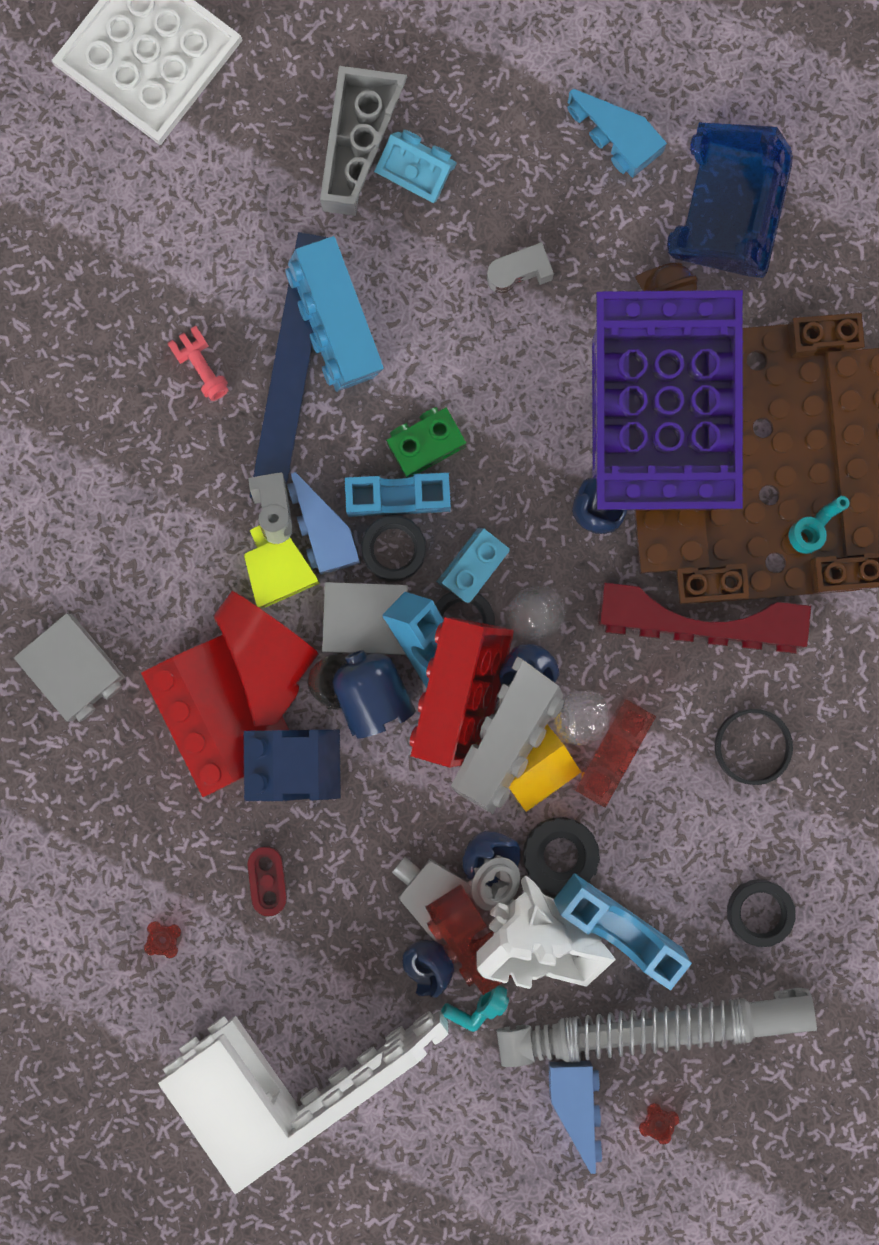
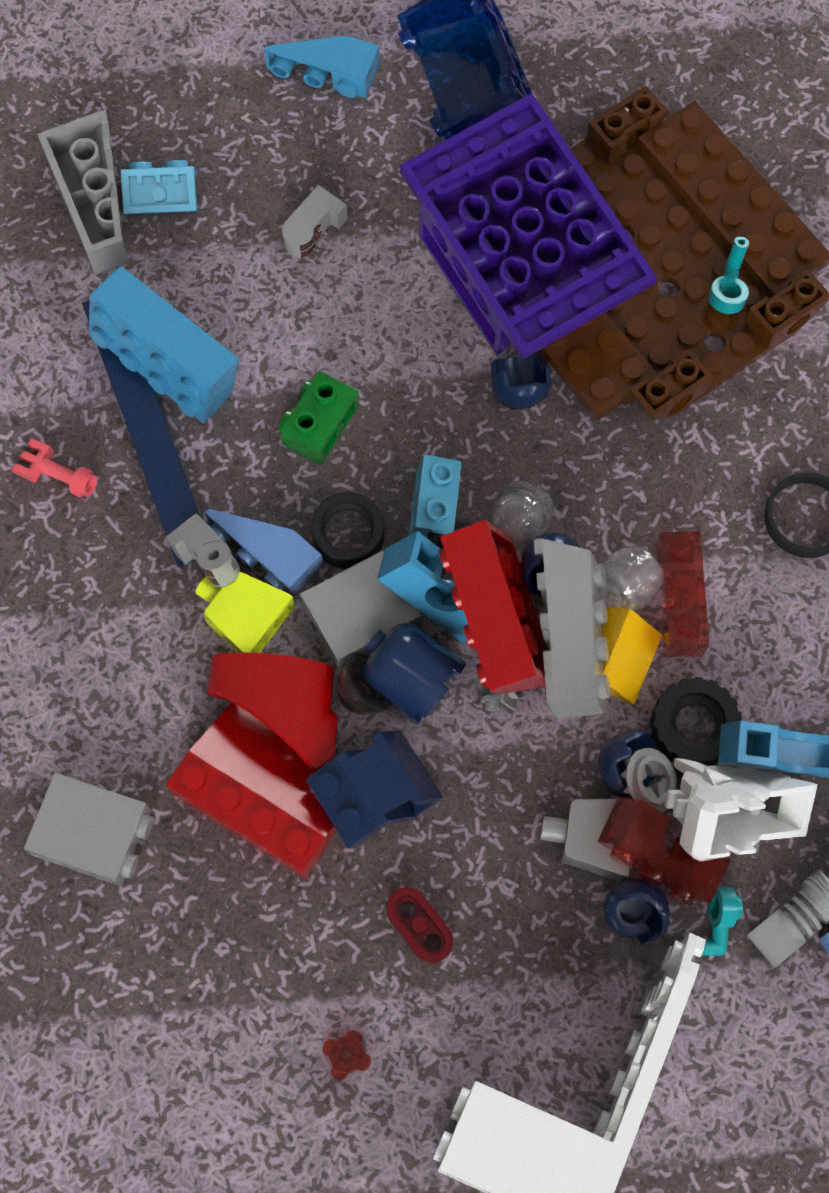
camera: 30 degrees left, 15 degrees down
(397, 496) = (346, 462): dark azure arch -> none
(631, 608) = (613, 453): dark red arch -> none

